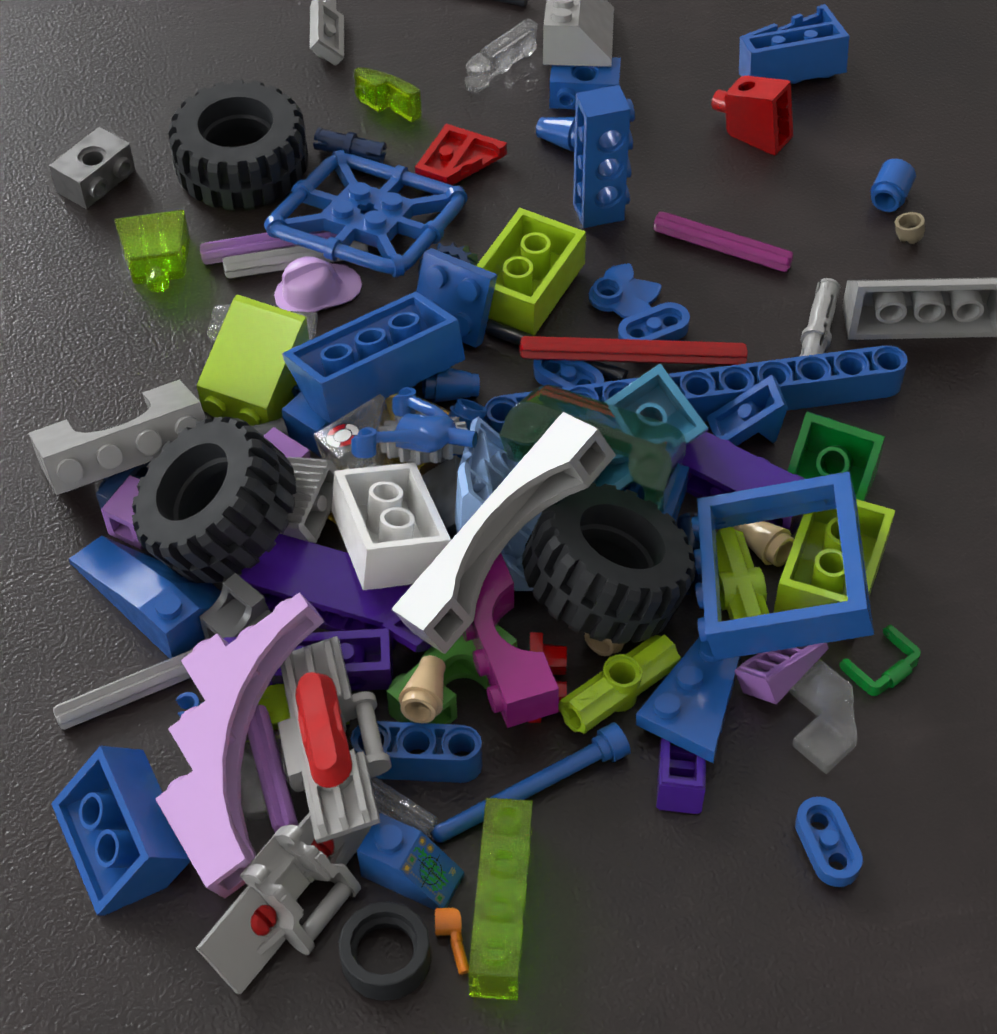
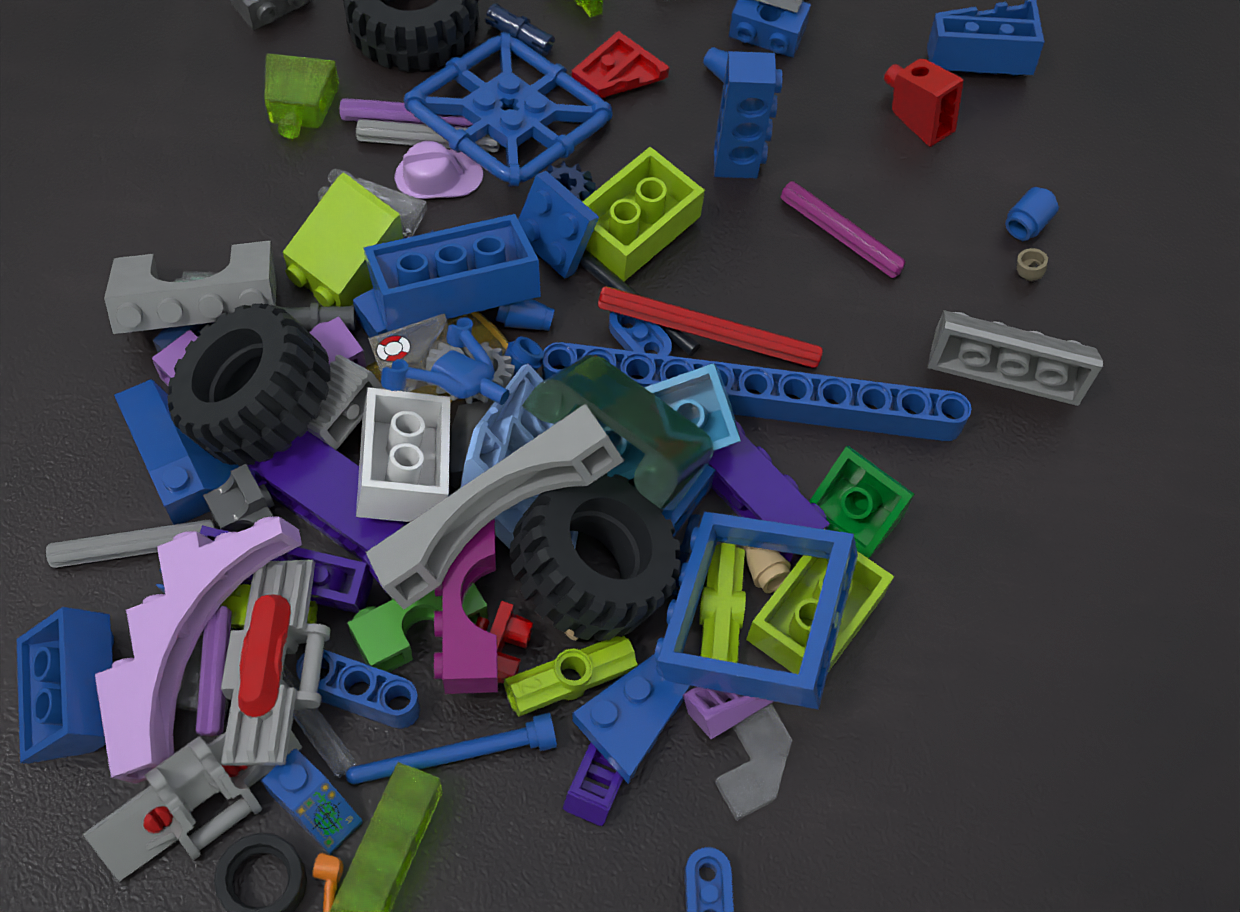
camera: 10 degrees right, 10 degrees up
(423, 693) = (377, 637): tan cone -> none
(622, 292) = (731, 260): blue plate -> none
(654, 323) = (739, 303): blue plate -> none
(754, 411) = (794, 427): blue slope -> none
(817, 335) = (895, 358): light grey pin -> none
(894, 674) = (838, 738): green piece -> none

